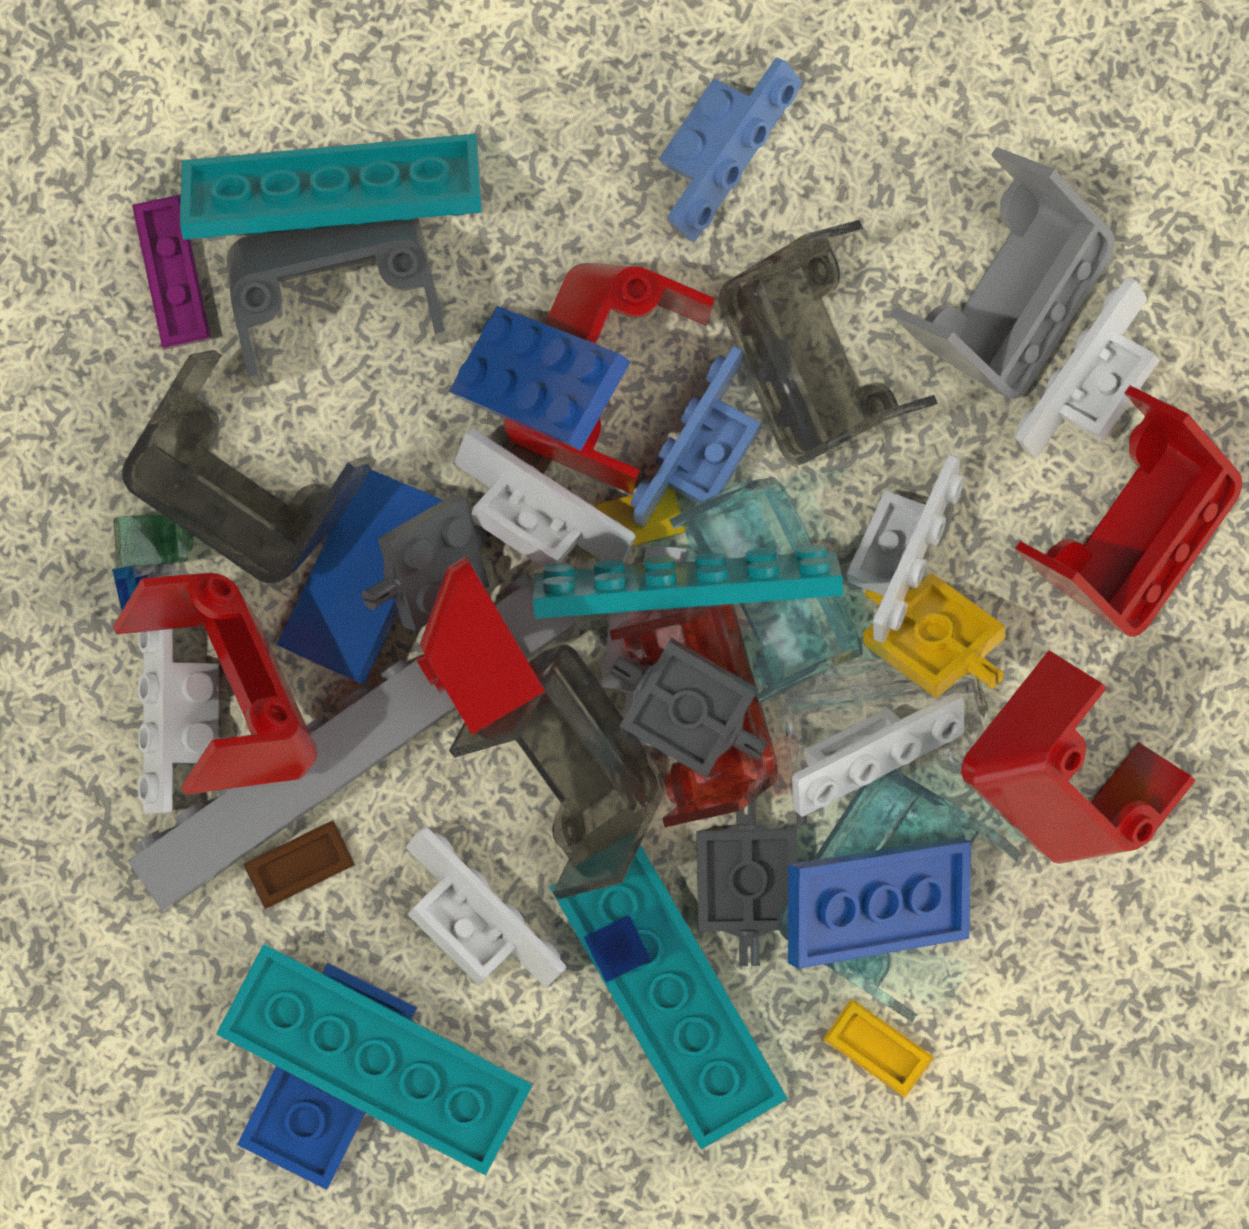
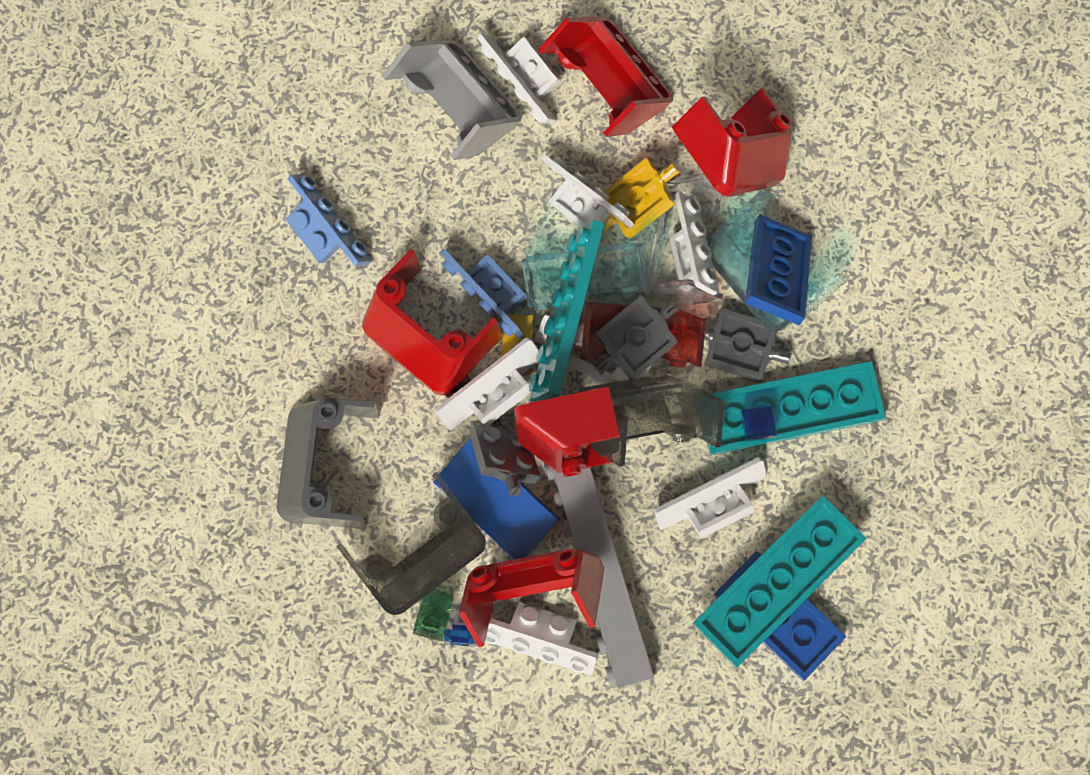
camera: 70 degrees left, 10 degrees down
(171, 273) = (281, 555): magenta tile -> none
(299, 864) = (651, 593): reddish brown tile -> none
(330, 186) = (266, 445): teal plate -> none
(539, 377) = (420, 358): blue plate -> none
(797, 355) = (457, 225): clear smoke windscreen -> none
(878, 1048) = (856, 306): yellow tile -> none

